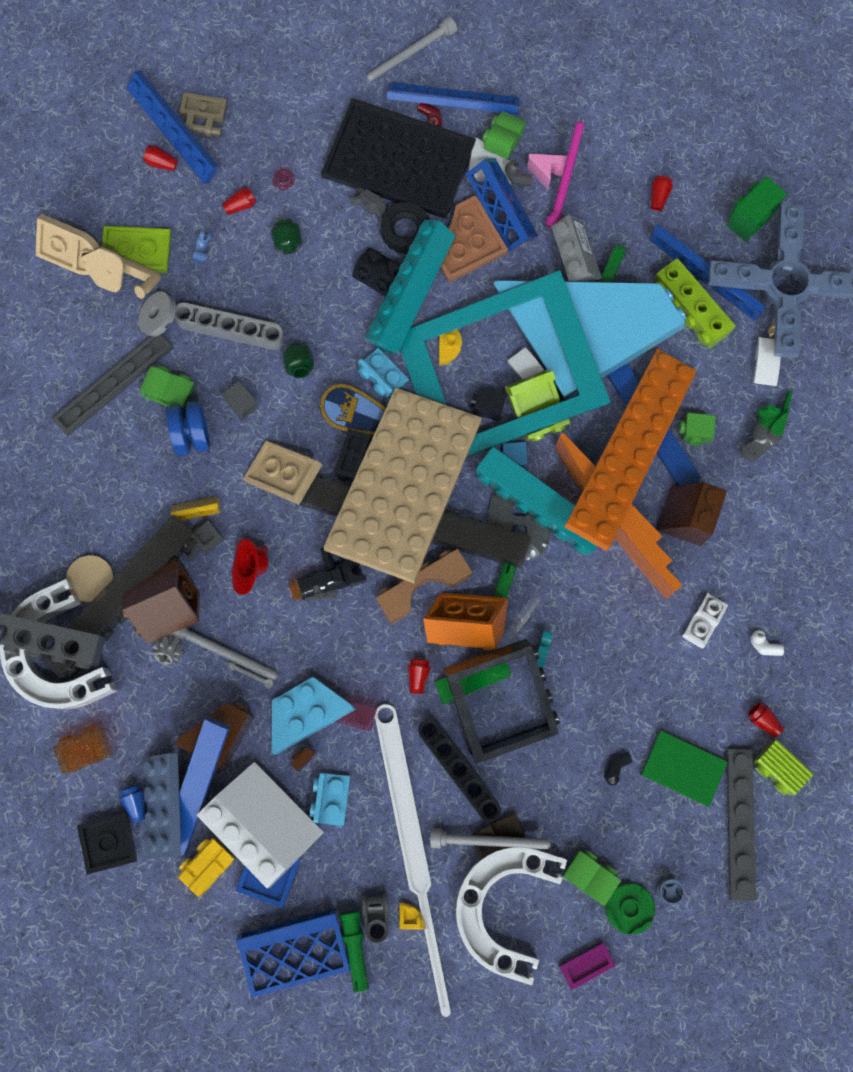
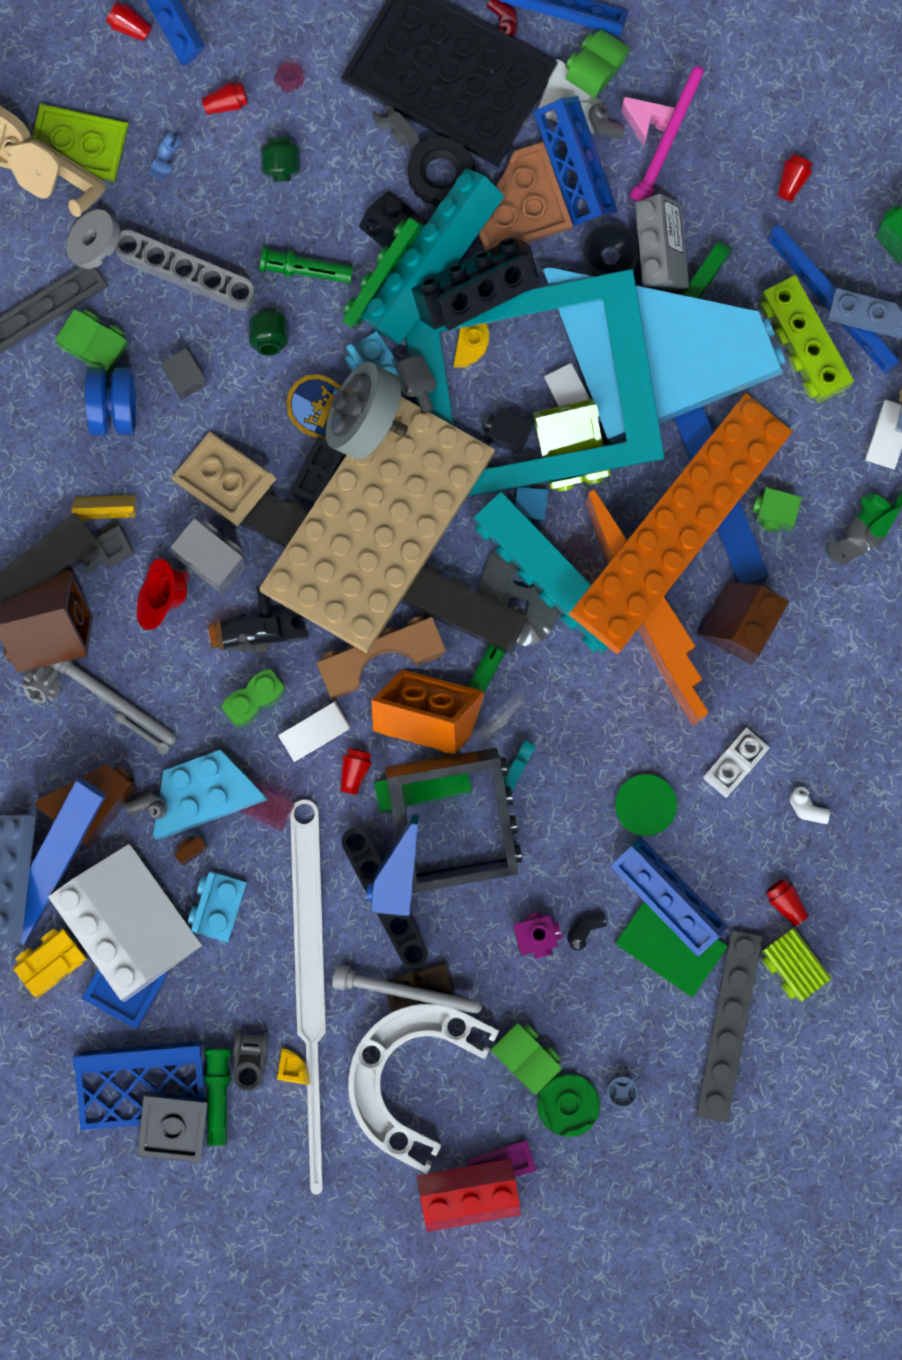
camera: 10 degrees right, 5 degrees up
(264, 727) = (148, 802): none -> dark grey arm
(280, 530) = (208, 556): none -> light grey brick
(305, 313) = (288, 265): none -> green pin
(324, 982) = (172, 1127): none -> plate
(327, 638) = (246, 704): none -> bright green brick
(378, 292) = (388, 259): none -> green plate
(381, 402) = (364, 411): none -> light grey wheel
(382, 650) = (314, 731): none -> white slope
(414, 377) = (417, 380): none -> dark grey piece
(446, 300) = (476, 284): none -> black brick
(465, 754) = (394, 878): none -> slope
(539, 254) = (613, 237): none -> black piece
(568, 995) = (468, 1195): none -> red slope
(573, 782) = (528, 944): none -> magenta brick
(643, 664) = (645, 805): none -> green tile
(676, 732) = (669, 896): none -> blue fence

